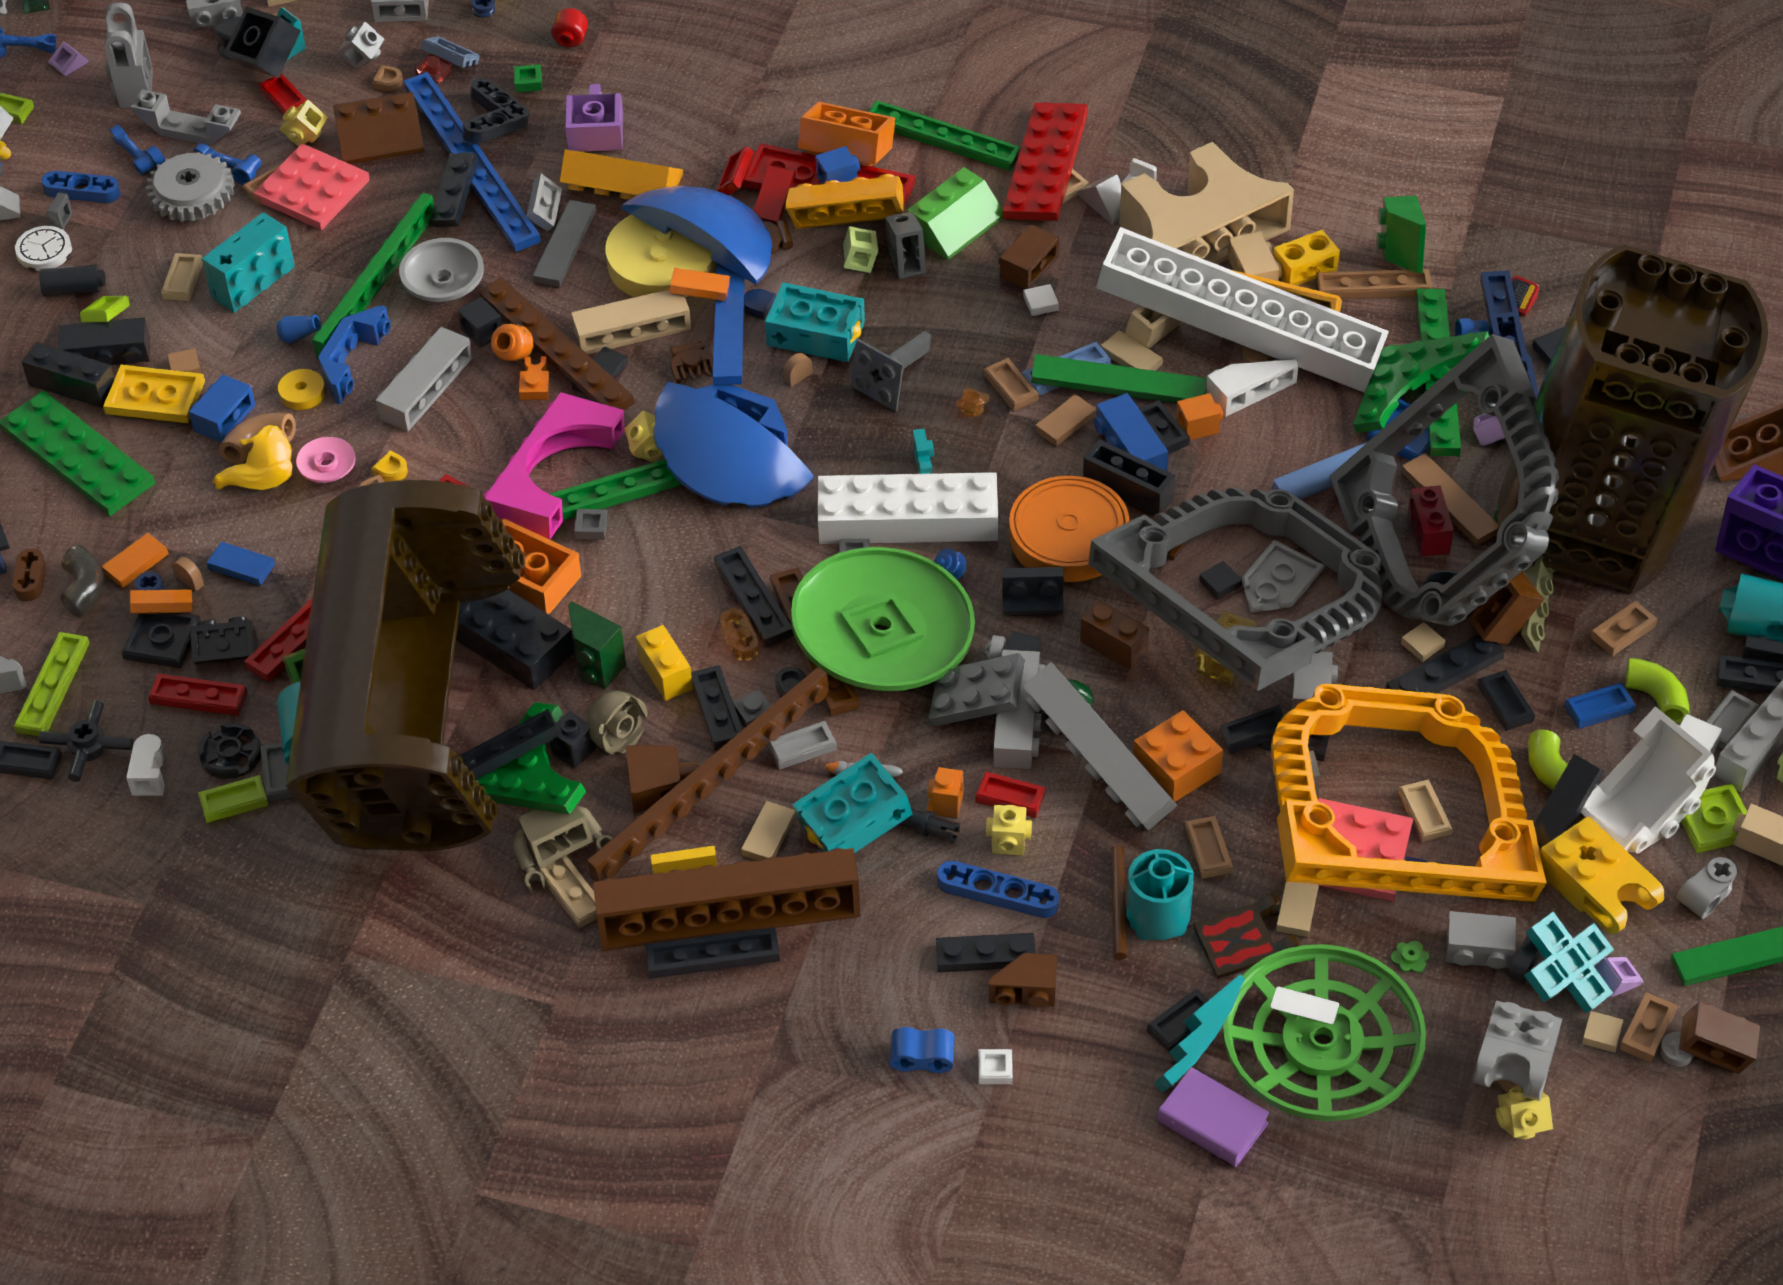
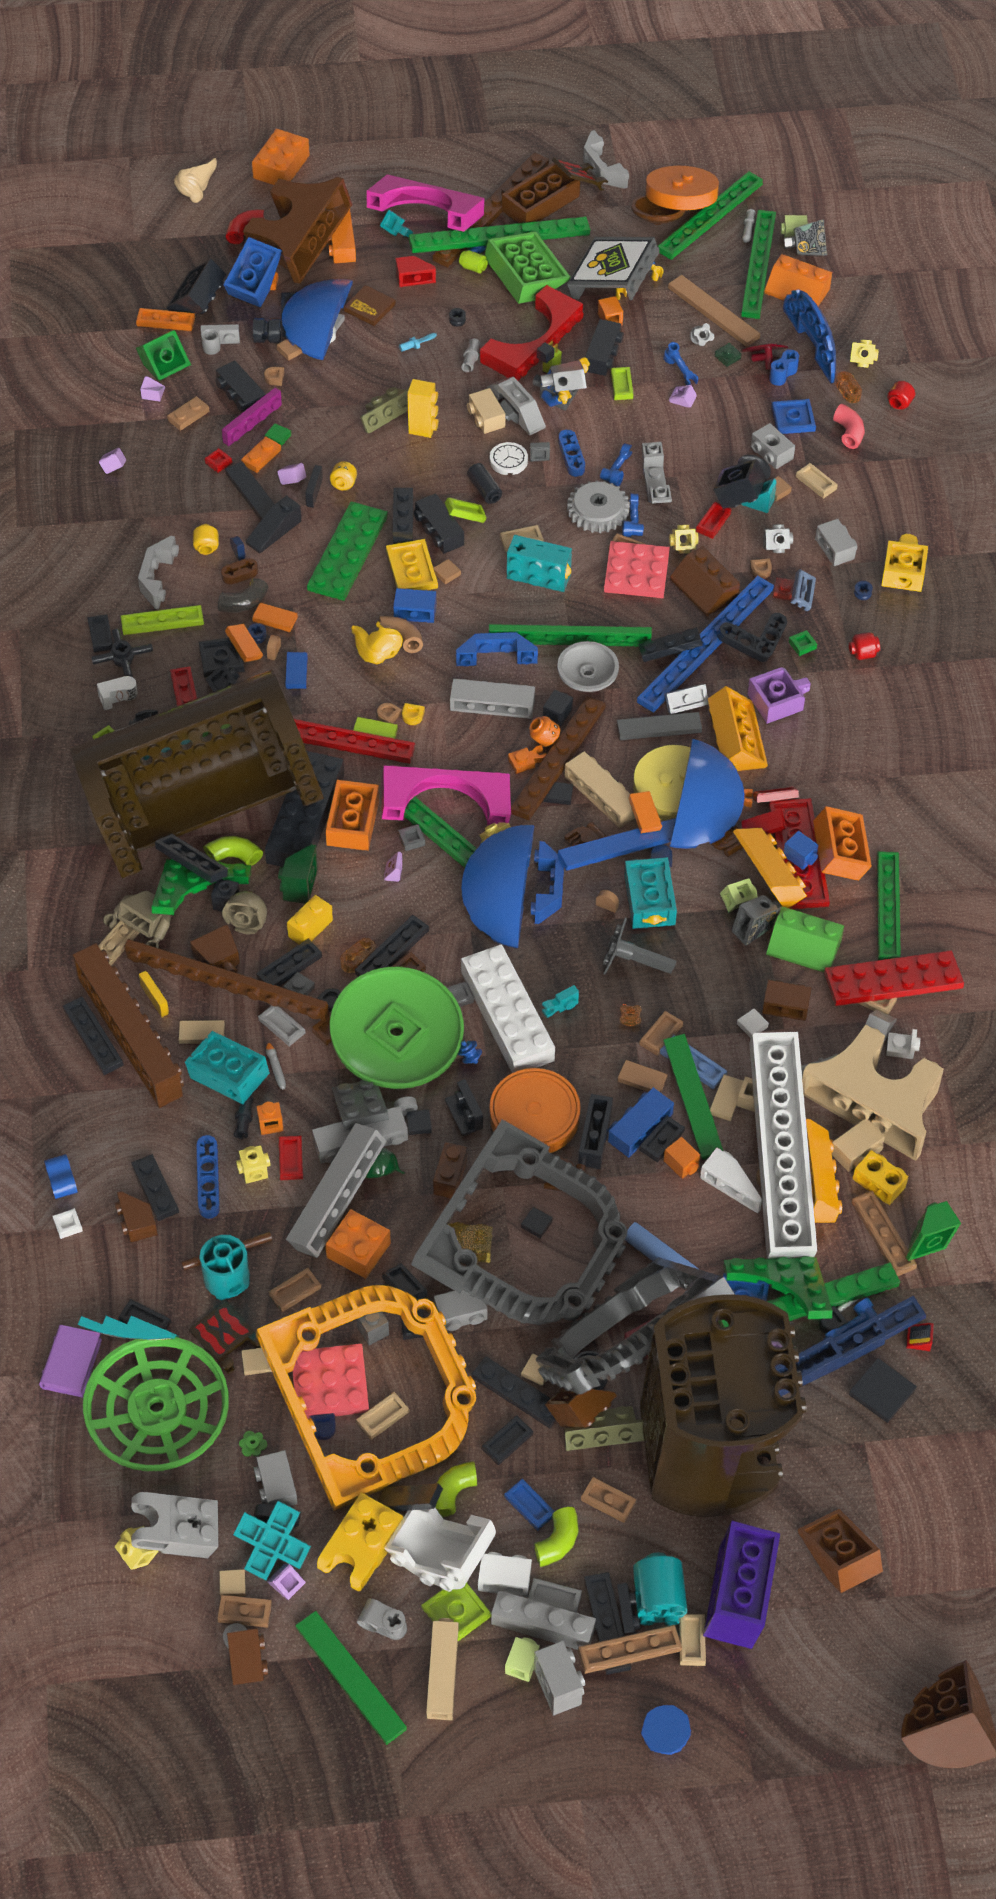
camera: 65 degrees right, 5 degrees up
(126, 56) = (680, 421): light grey brick -> none
(297, 327) = (501, 612): blue cone -> none
(312, 389) = (452, 633): yellow piece -> none
(325, 459) = (397, 676): bright pink dish -> none
(499, 706) = (234, 847): none -> lime cylinder
(626, 555) = (393, 868): none -> lavender slope
(1279, 578) = (554, 1258): light grey tile -> none
(1305, 1005) = (169, 1383): white sticker -> none

